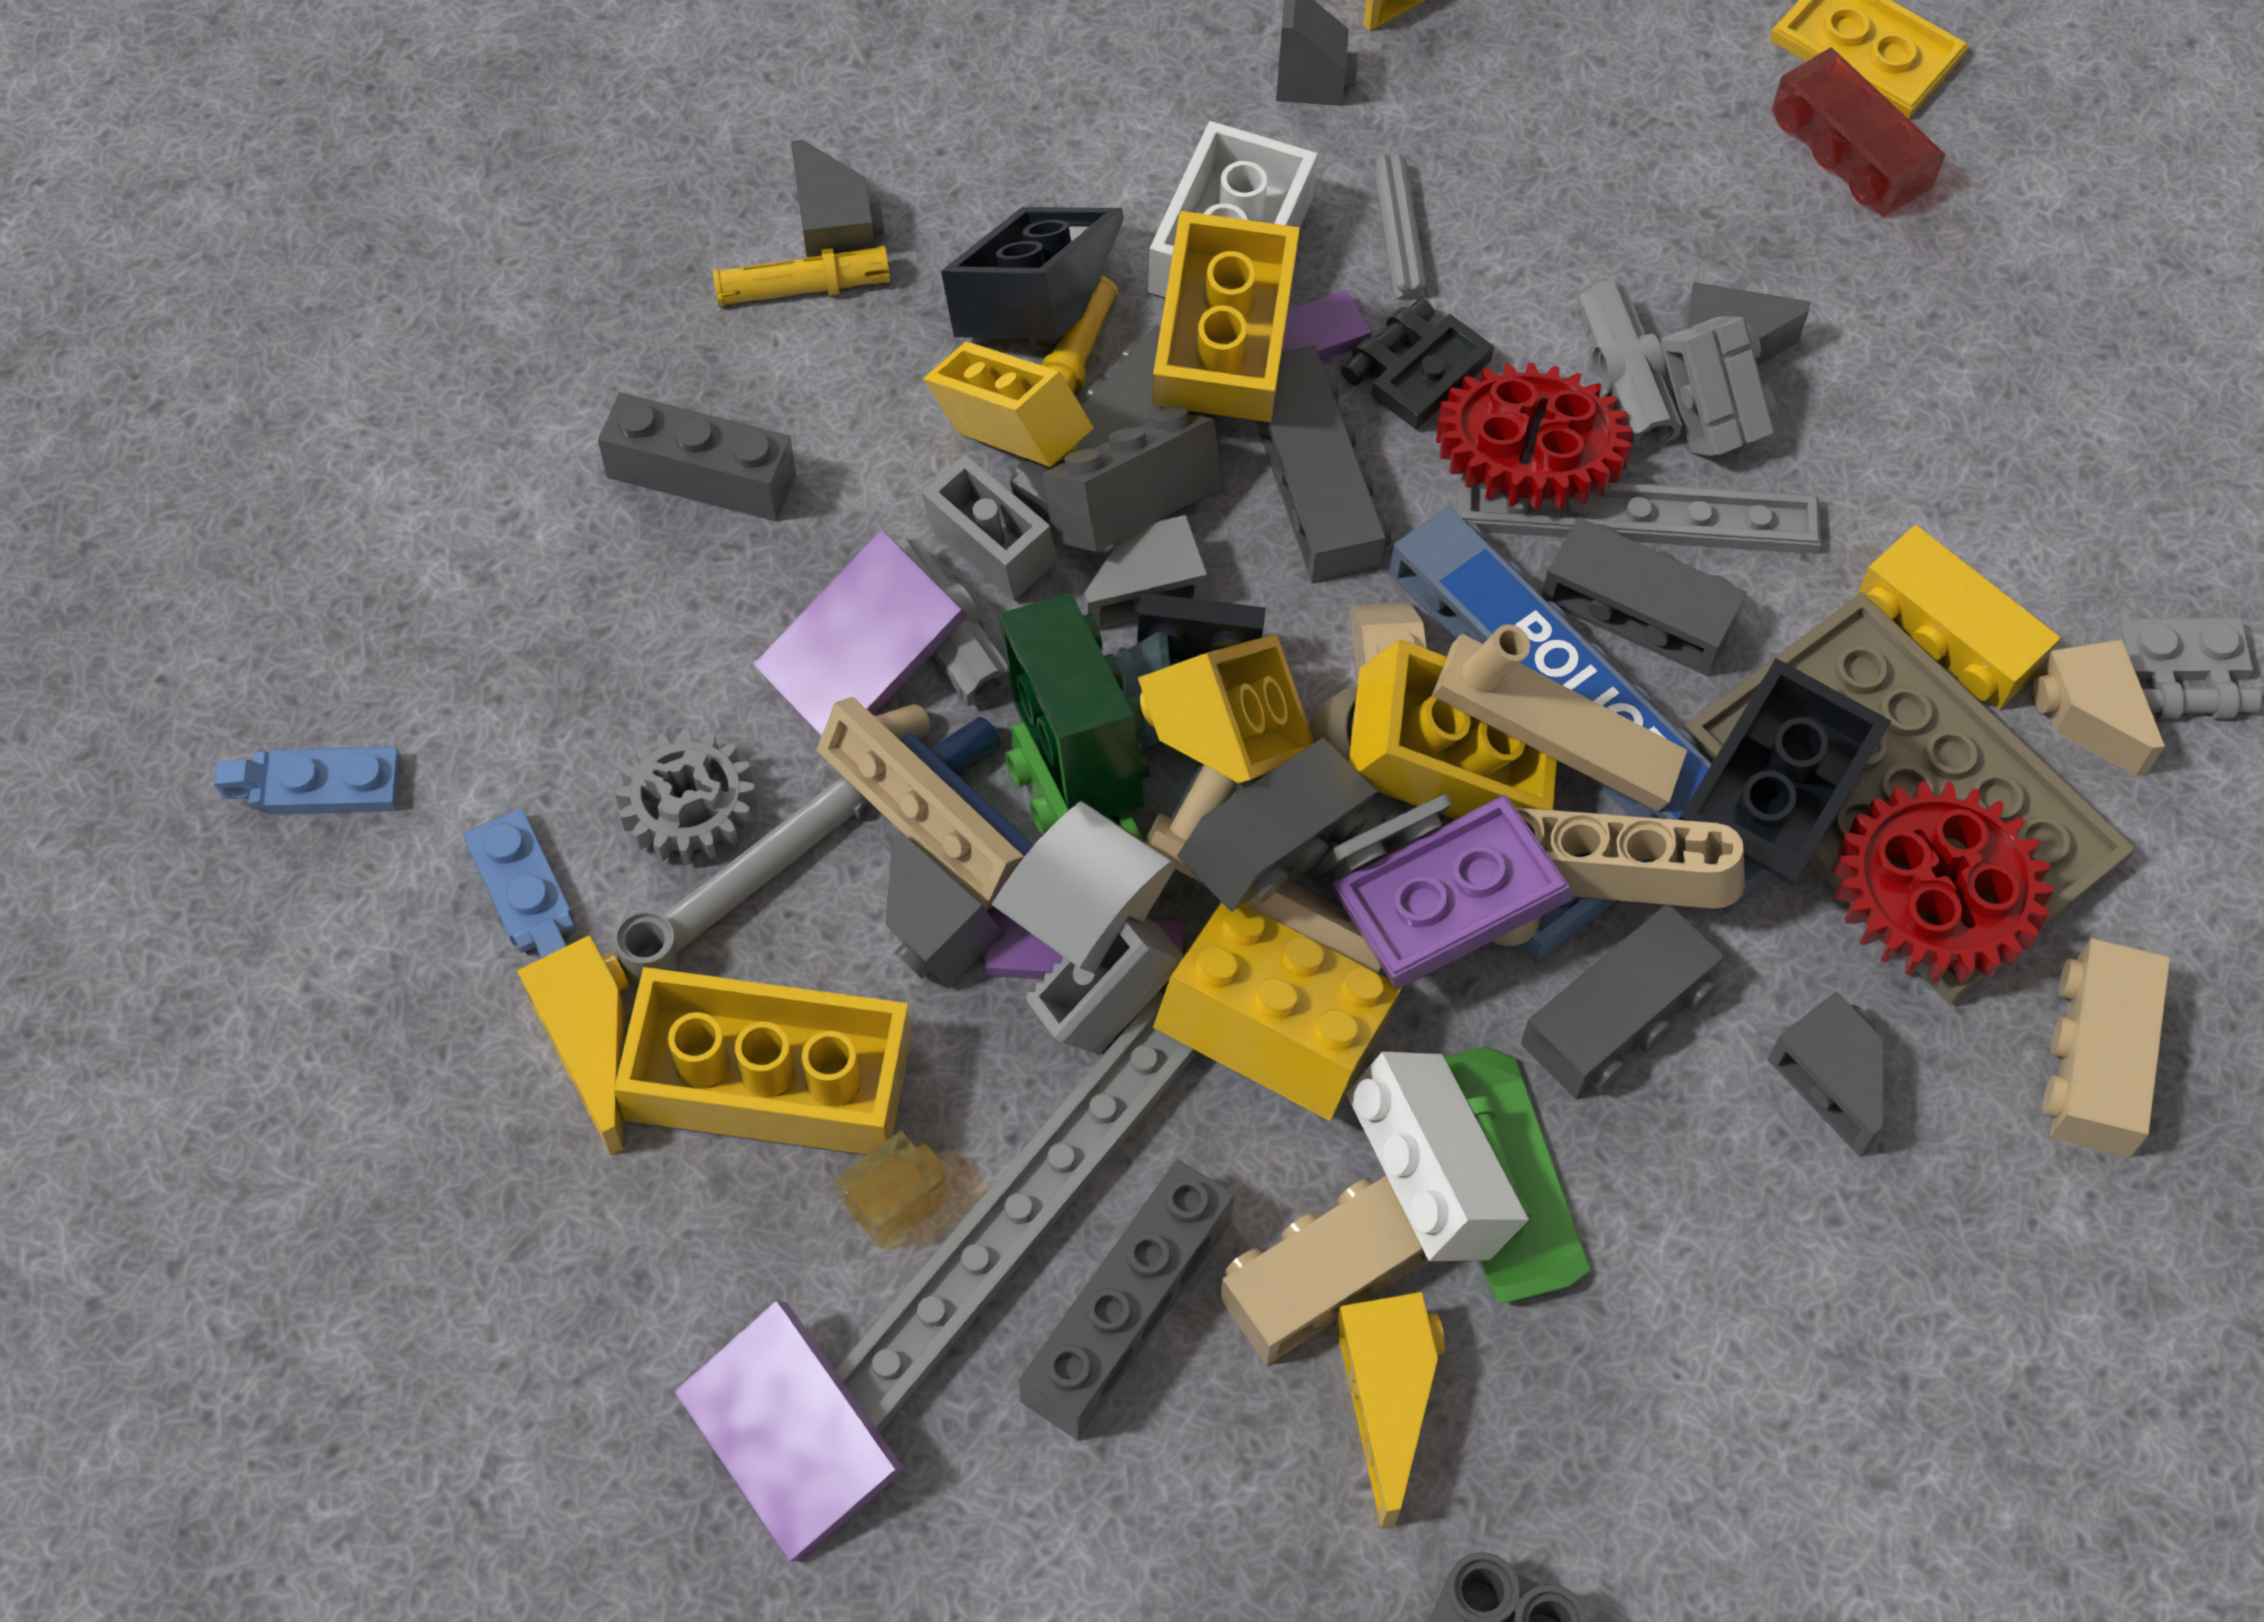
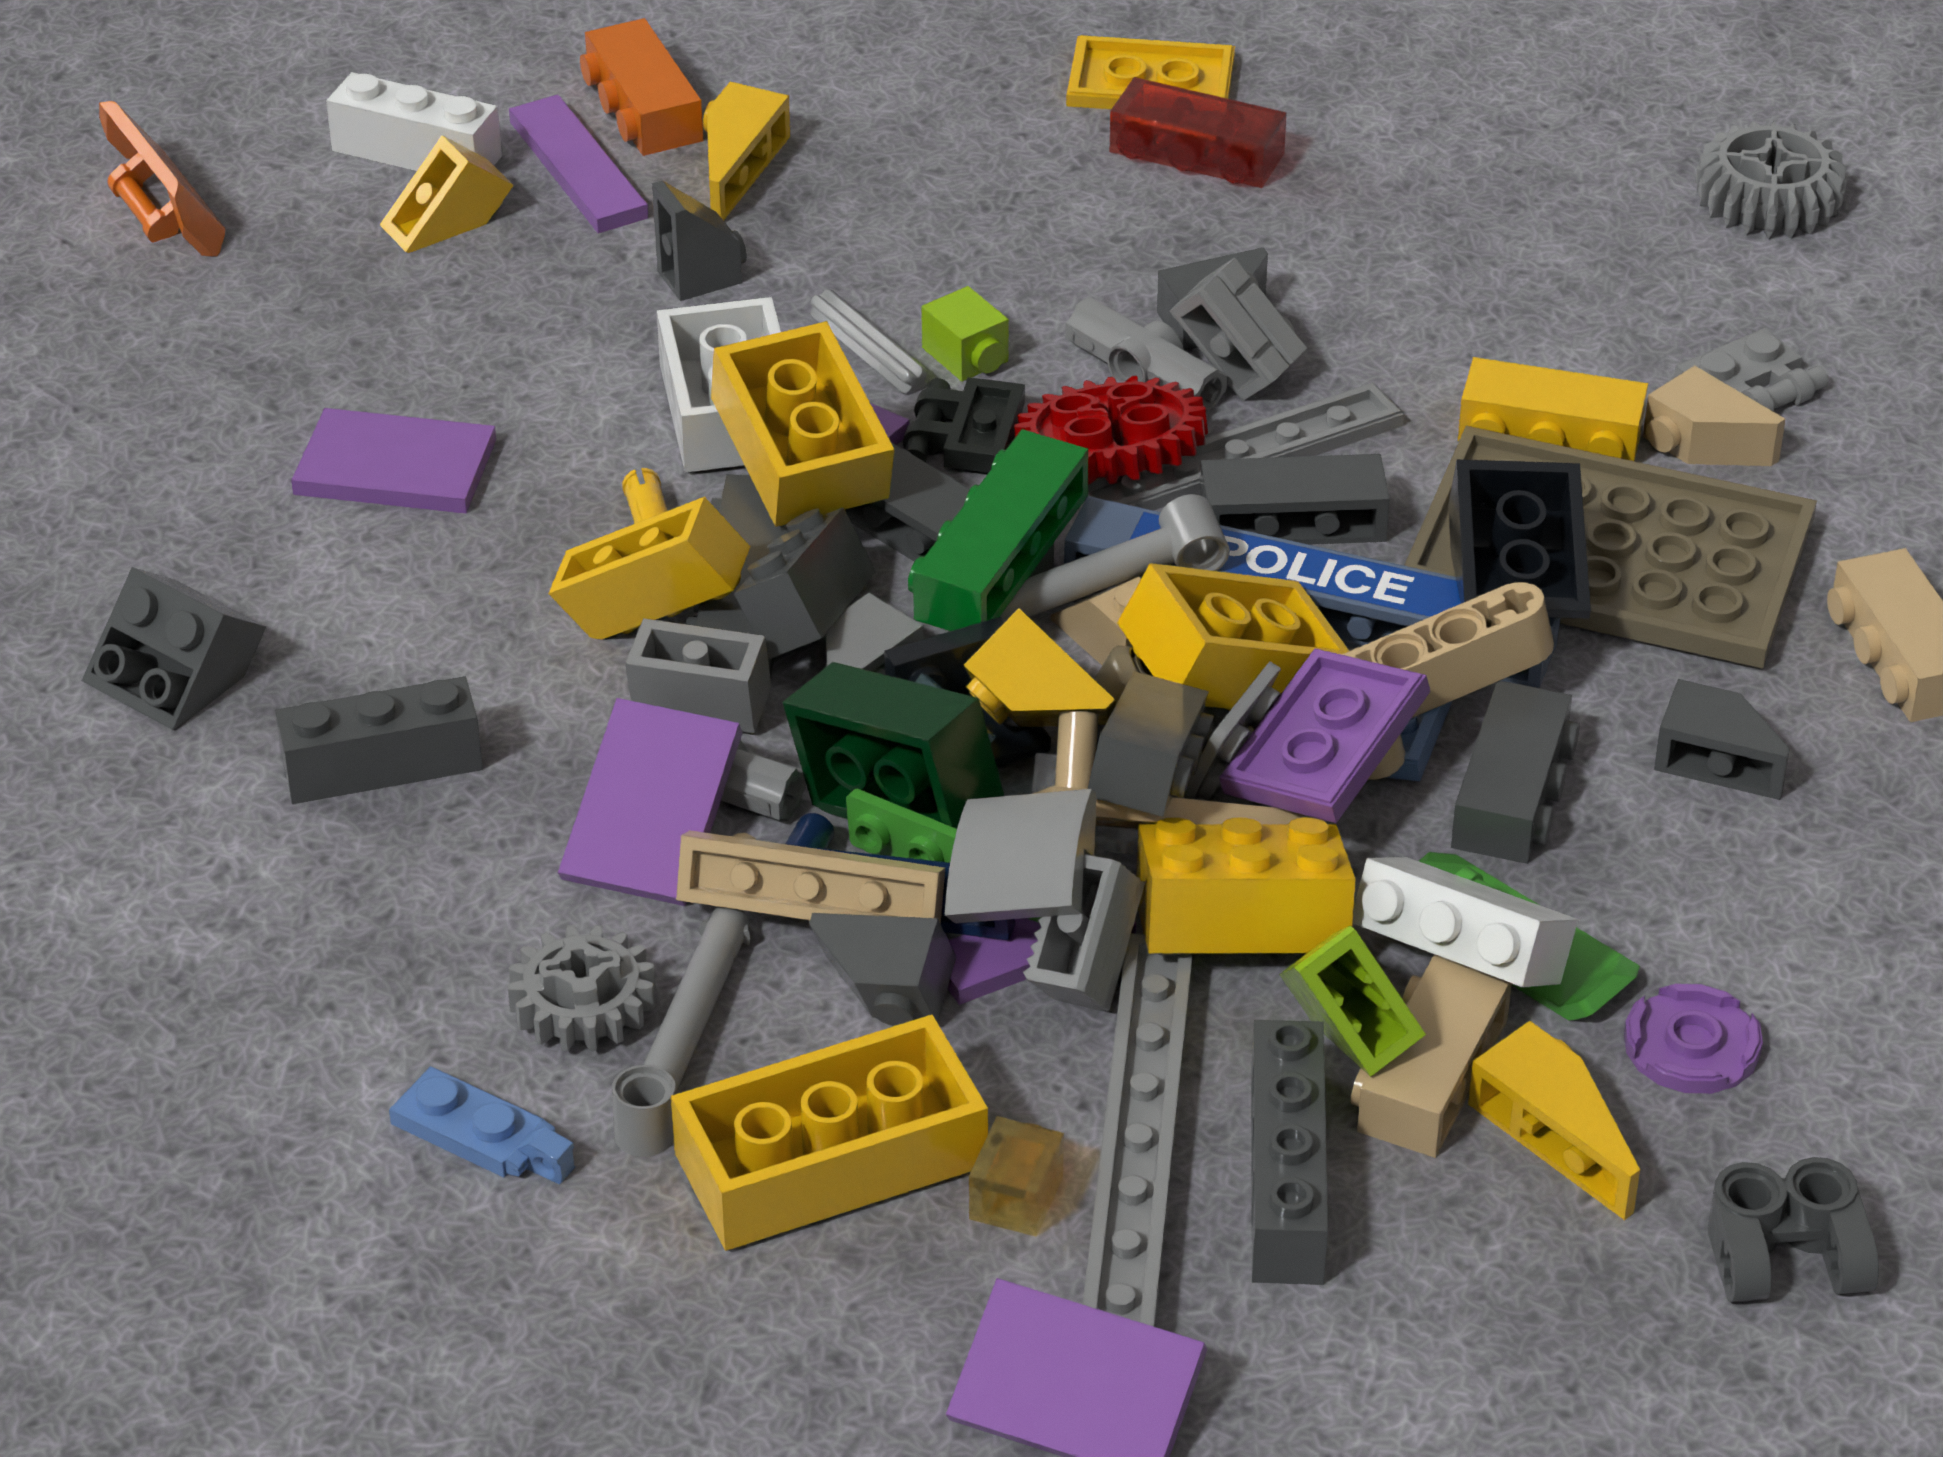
camera: 30 degrees left, 20 degrees down
(314, 780) = (202, 1139): medium blue hinge -> none
(586, 1023) = (635, 1190): yellow slope -> none
(608, 274) = (170, 649): none -> dark grey slope
(802, 276) = (377, 569): yellow pin -> none
(833, 203) = (343, 516): dark grey slope -> none
(922, 161) = (394, 460): none -> medium lavender tile
(1030, 274) = (579, 488): black slope -> none
(1267, 1186) = (1354, 999): none -> lime slope
(1327, 516) = (1000, 532): none -> green brick
(1483, 263) = (965, 333): none -> lime brick
(1492, 601) = (1187, 537): none -> light grey piece
(1557, 721) = (1305, 579): tan piece -> none
(1571, 1397) = (1689, 1055): none -> medium lavender tile
(1943, 882) = (1697, 572): red gear -> none

